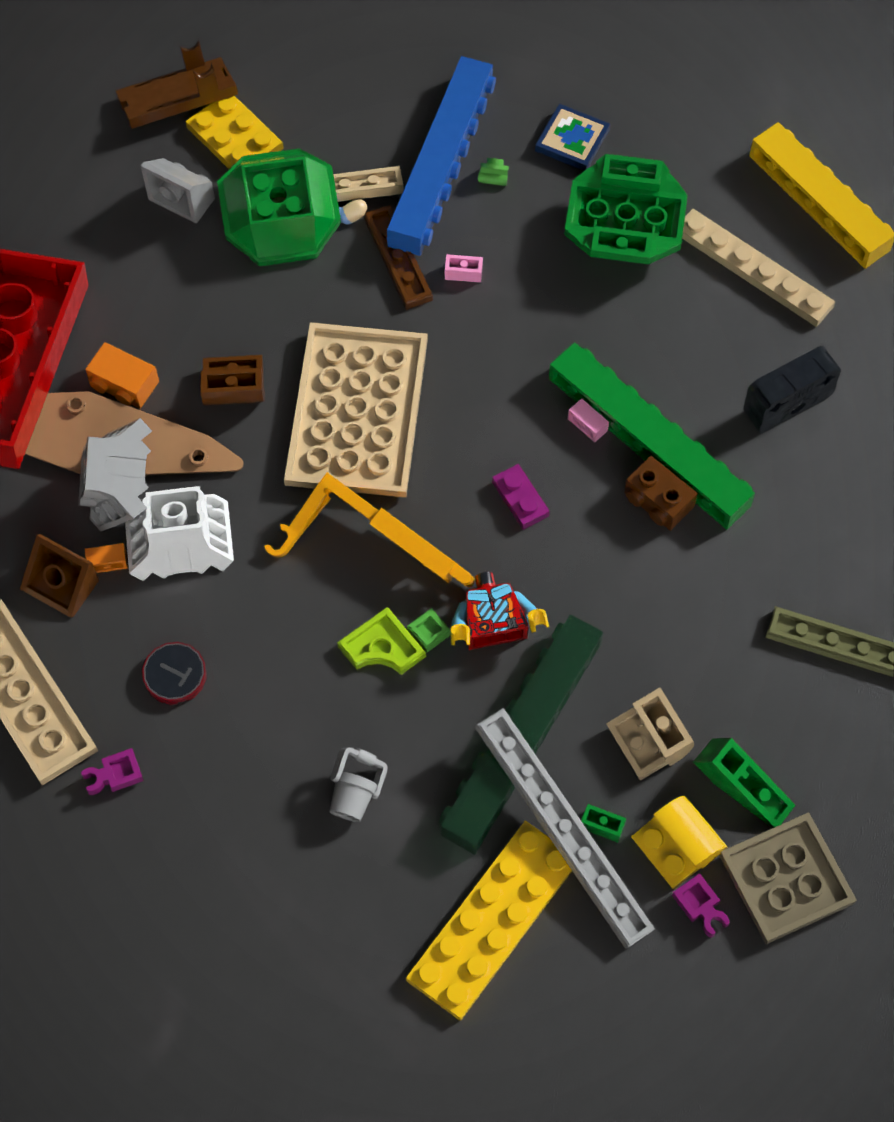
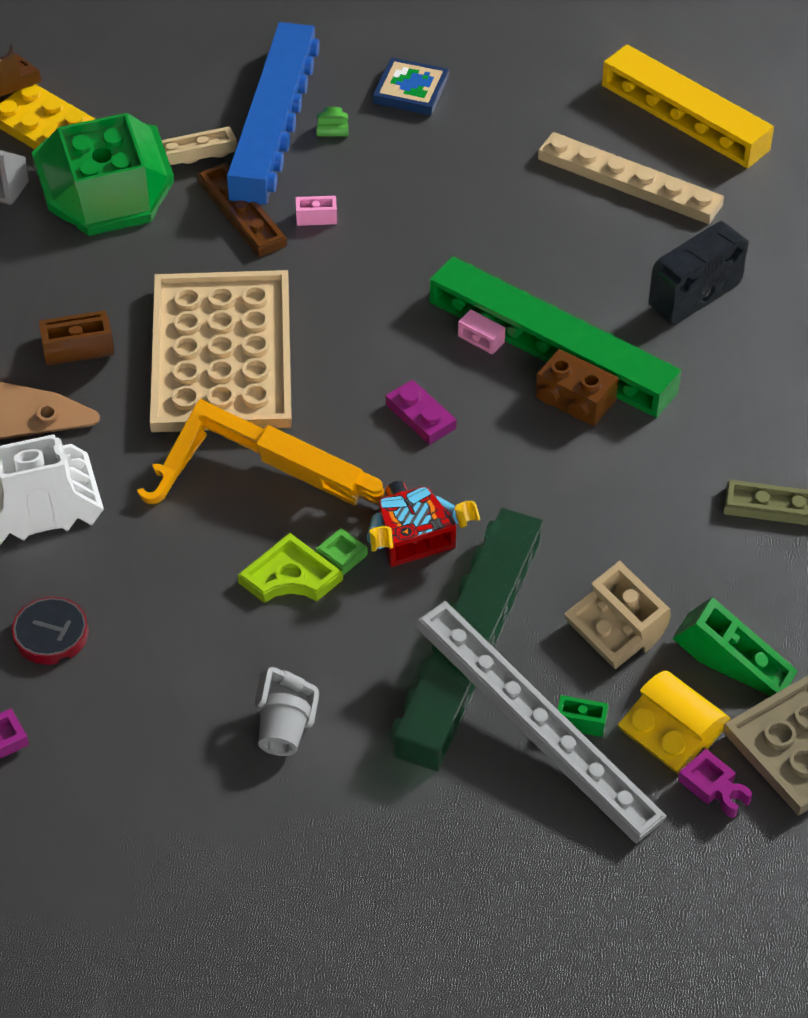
camera: 10 degrees left, 15 degrees down
(352, 211) = (185, 173): tan arm -> none
(490, 921) = (470, 837): yellow plate -> none
(626, 189) = (484, 135): green piece -> none

